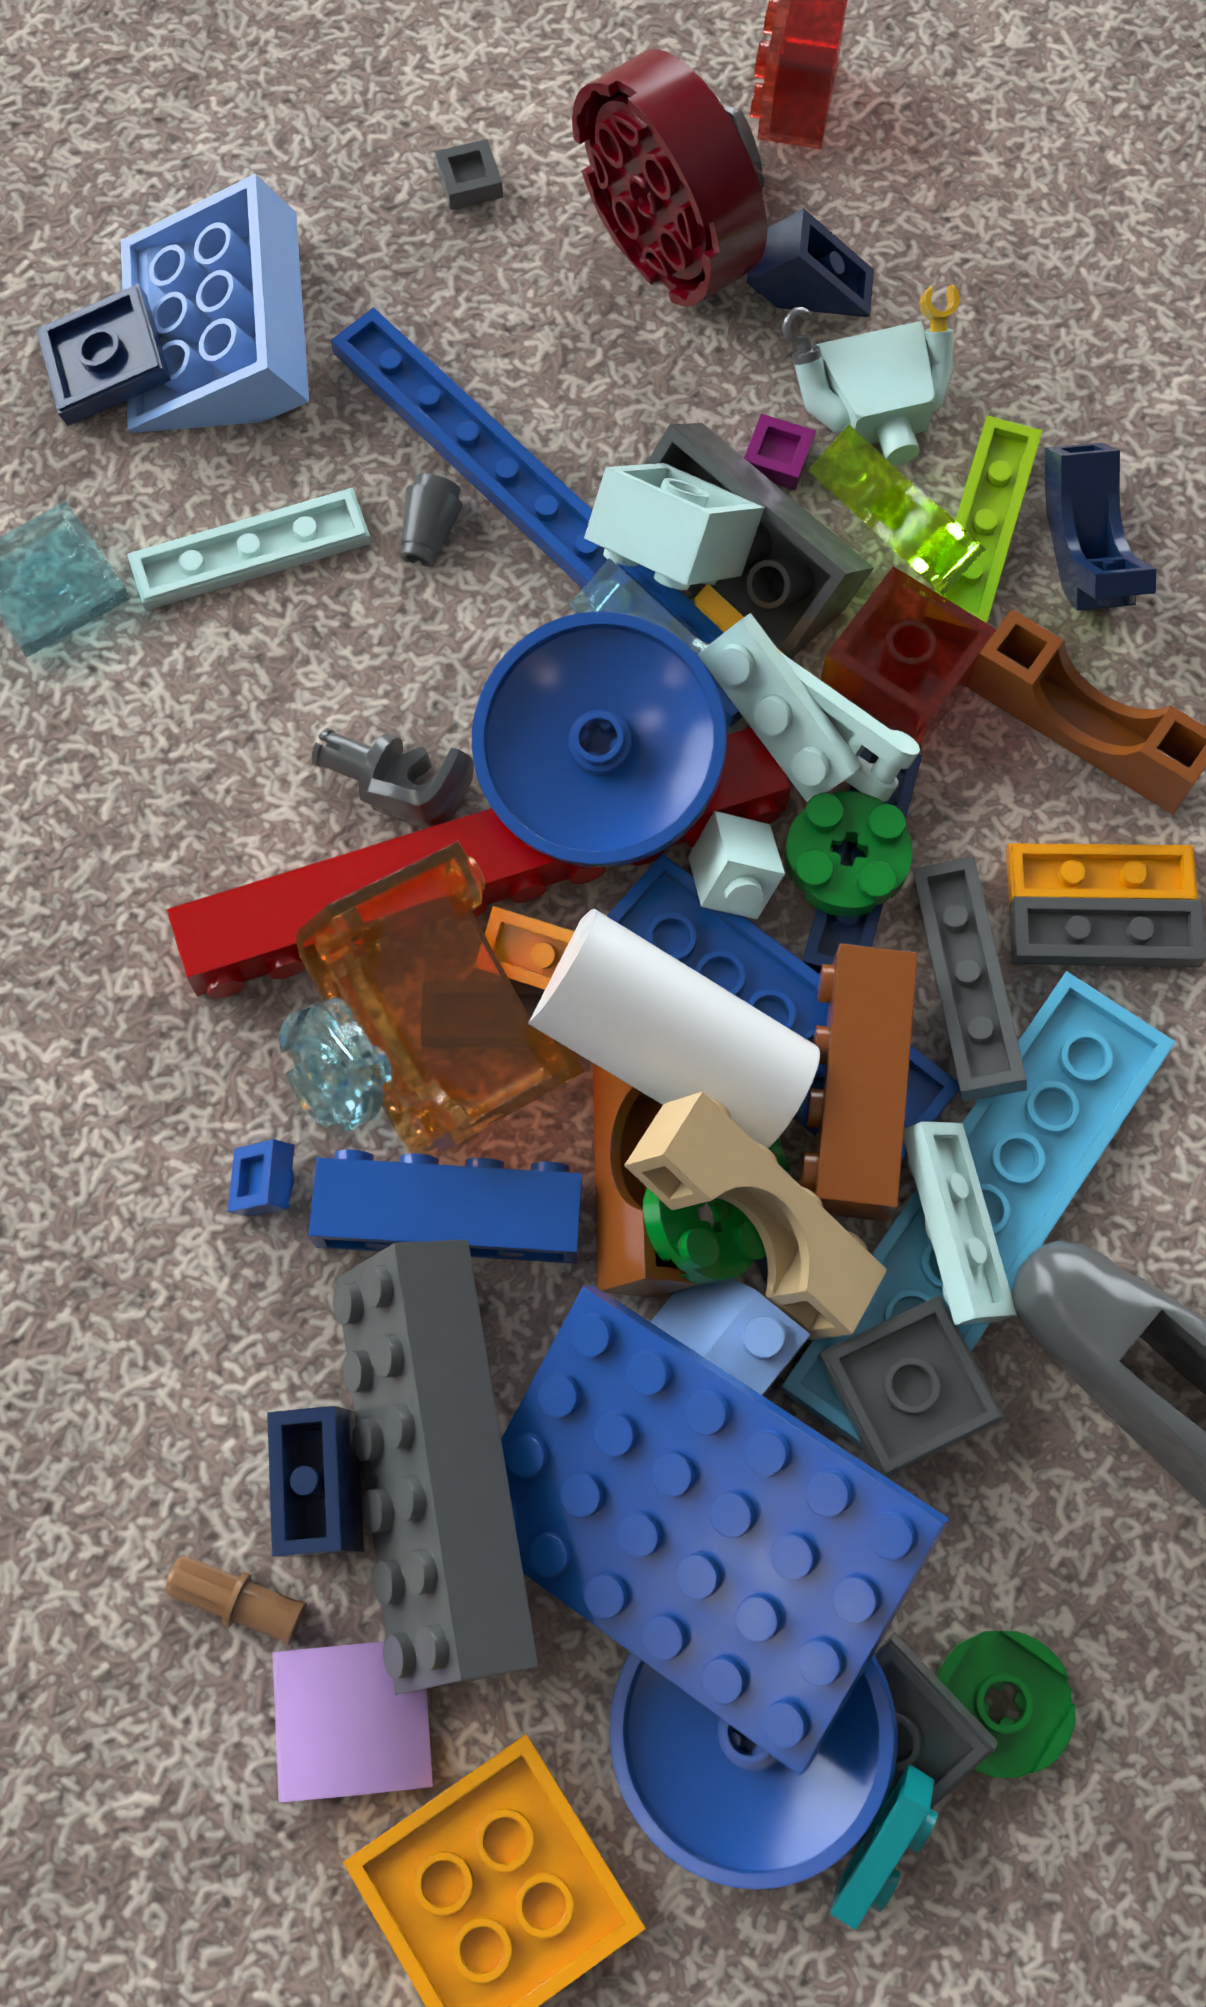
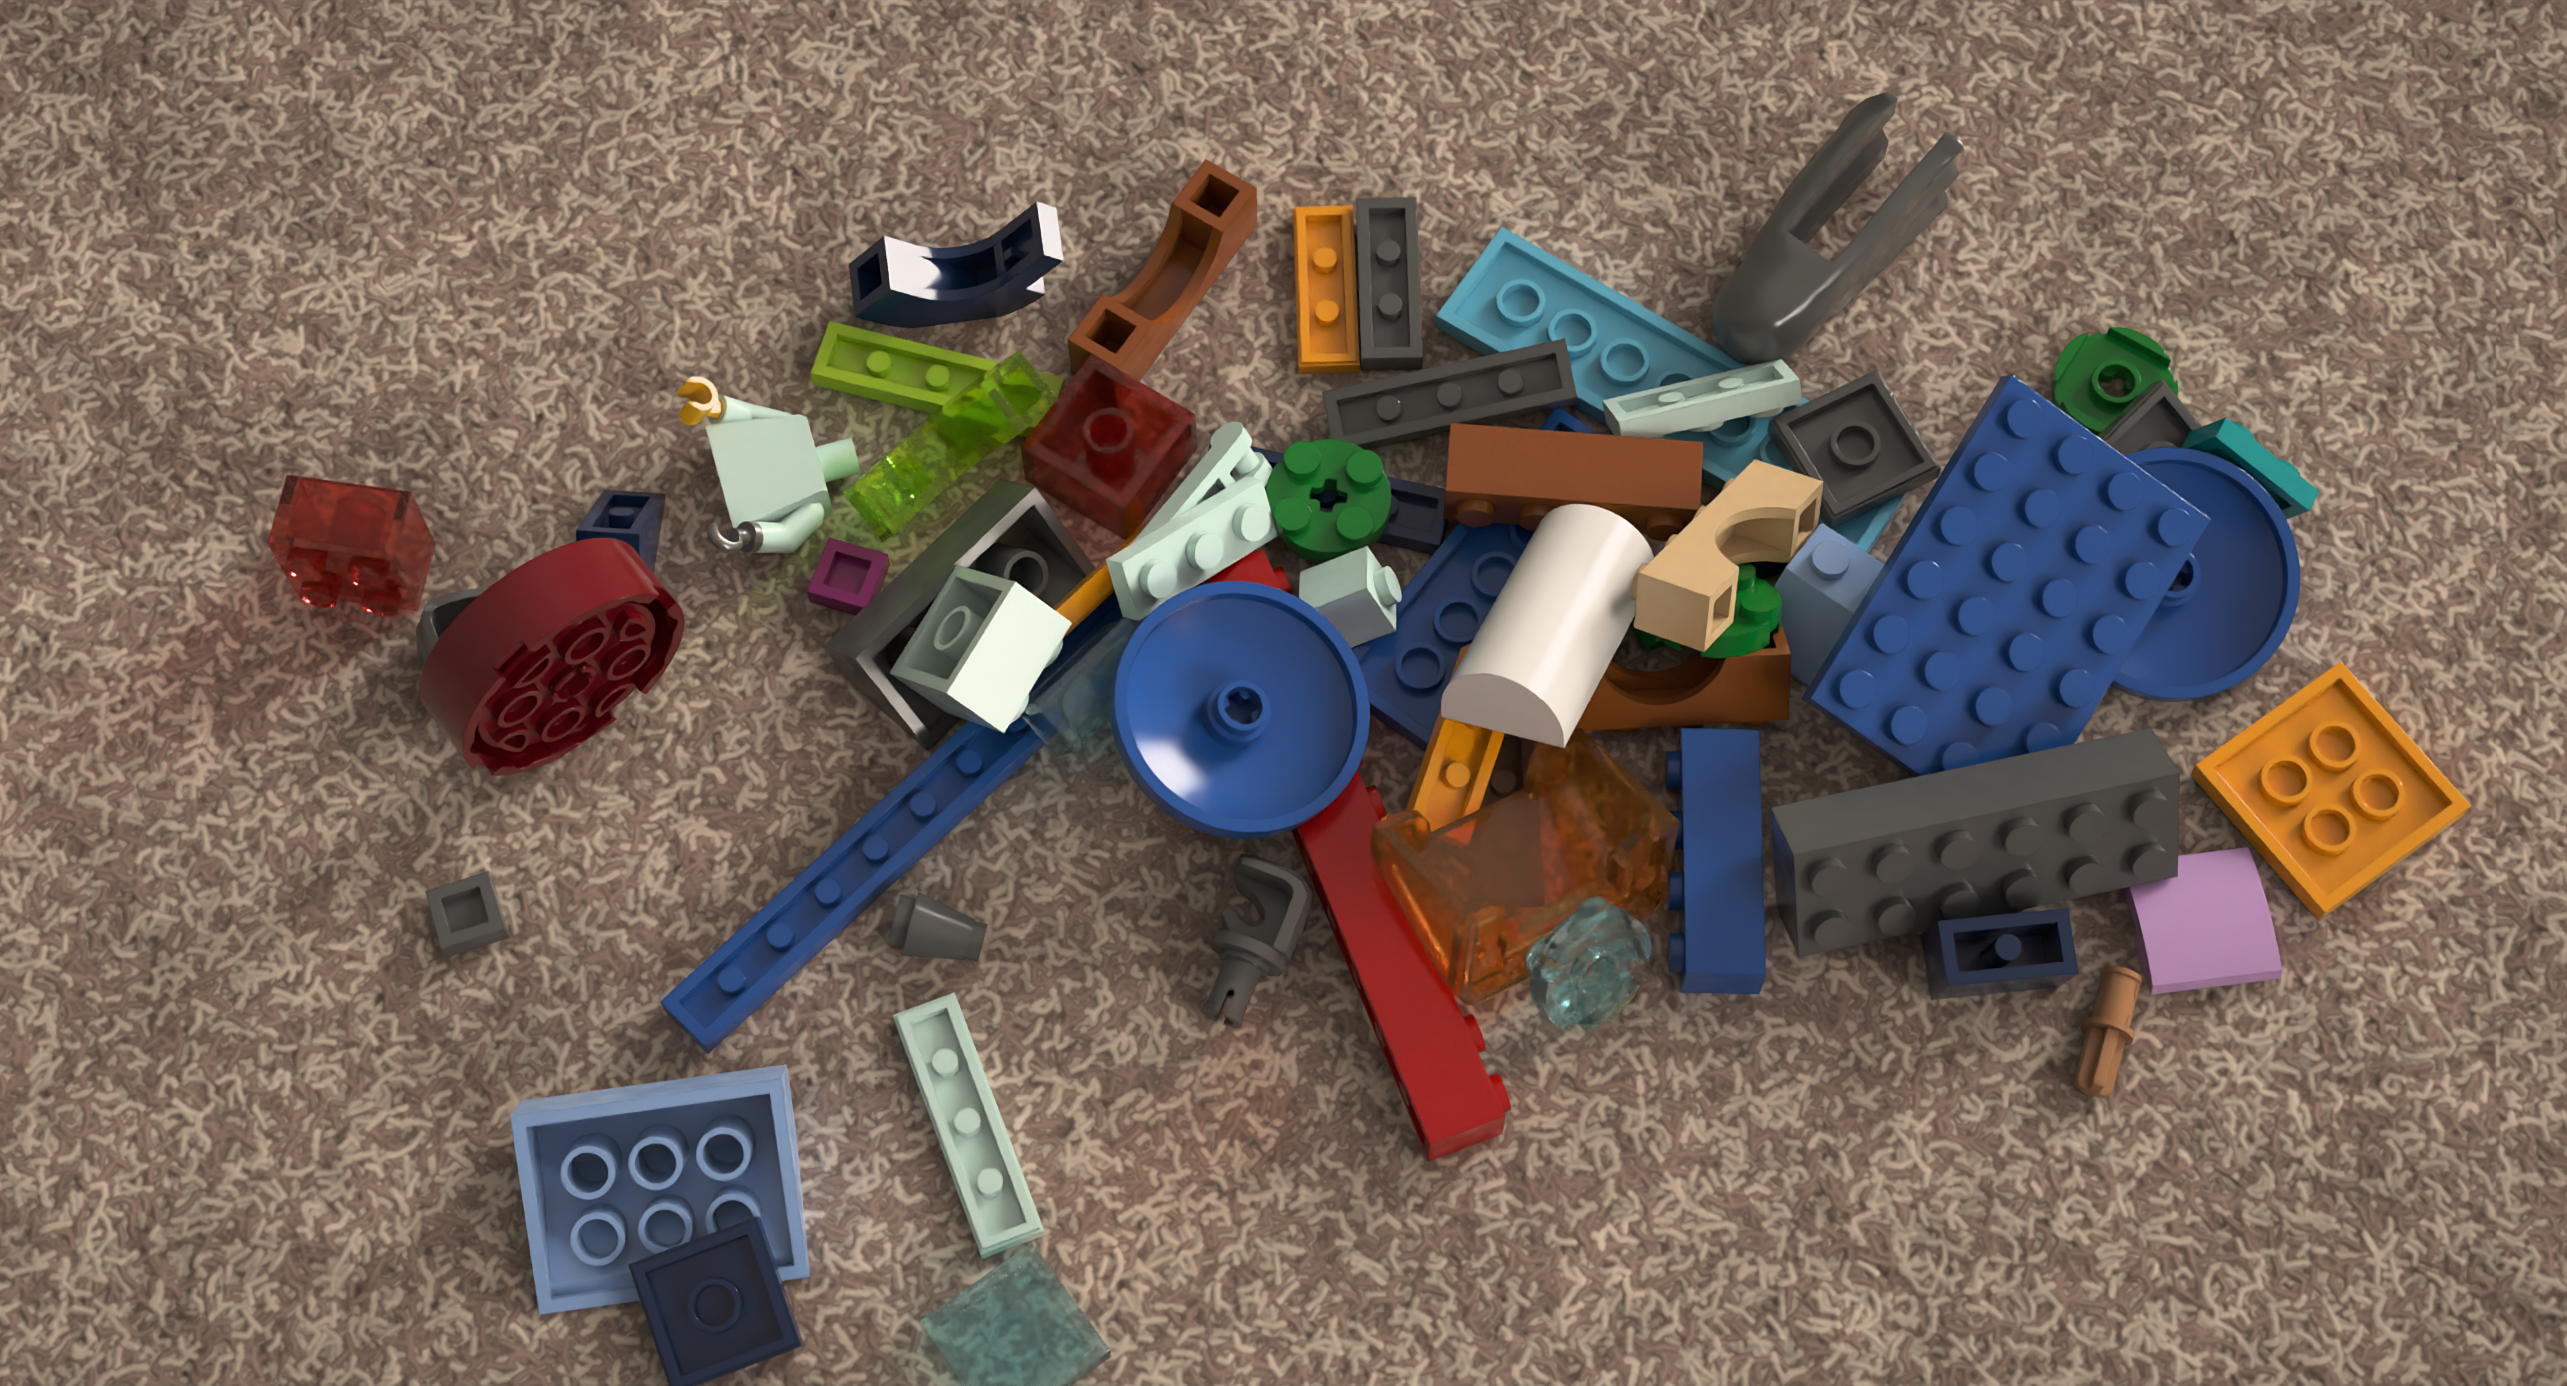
camera: 90 degrees left, 5 degrees down
(261, 1178) = (1701, 1039): blue plate -> none

